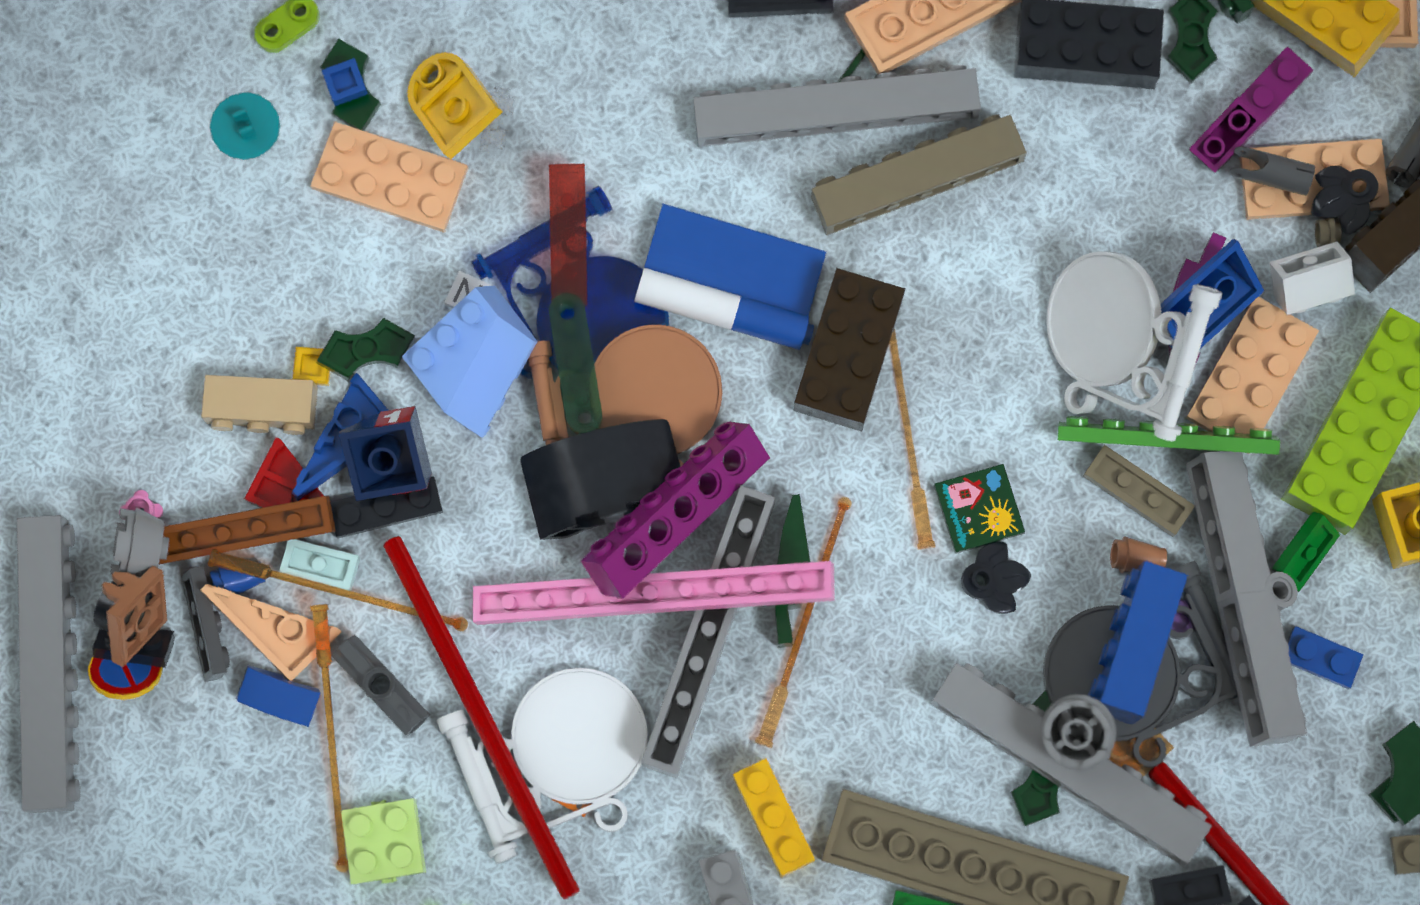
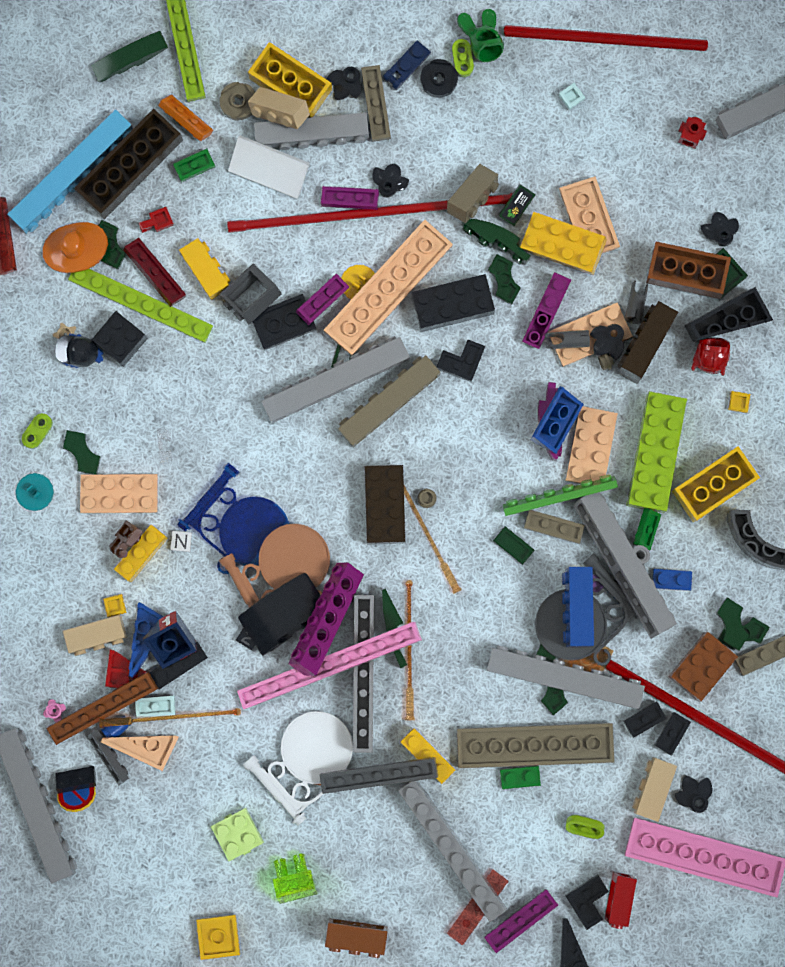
camera: 20 degrees left, 5 degrees up
(131, 611) = (70, 766): nougat piece -> none
(139, 542) = (61, 730): light grey cone -> none
(278, 696) = (158, 780): blue slope -> none
(324, 660) = (175, 755): clear orange piece -> none
(344, 82) = (78, 453): blue plate -> none
(364, 669) = (197, 750): dark grey piece -> none
(376, 250) = (125, 537): none -> reddish brown plate
(381, 345) = (131, 593): dark green tile -> none
(390, 289) = (141, 553): none -> yellow brick
(453, 105) = (139, 446): yellow plate -> none
(473, 357) = (196, 575): light blue wedge -> none
(481, 718) = (264, 755): red axle -> none
(520, 503) = (245, 639): none -> black tile
(568, 230) = (222, 494): clear red tile -> none
(575, 363) = (249, 561): clear green plate -> none
(674, 820) = (379, 775): none -> dark grey plate
(731, 277) = (312, 487): blue door -> none
(927, 365) = (427, 498): none -> dark tan plate
(979, 508) = (477, 563): dark green tile -> none
(1001, 578) = (499, 593): black plate -> none
(1054, 500) = (513, 545): none -> dark green tile
(1071, 158) = (463, 366): none -> black plate
(1078, 732) = (564, 664): light grey cone -> none
(1106, 328) = (512, 453): white piece -> none
(1132, 553) = (563, 560): nougat cone -> none
(1312, 278) = (605, 388): white brick -> none
(1329, 831) = (703, 666): none -> dark orange brick

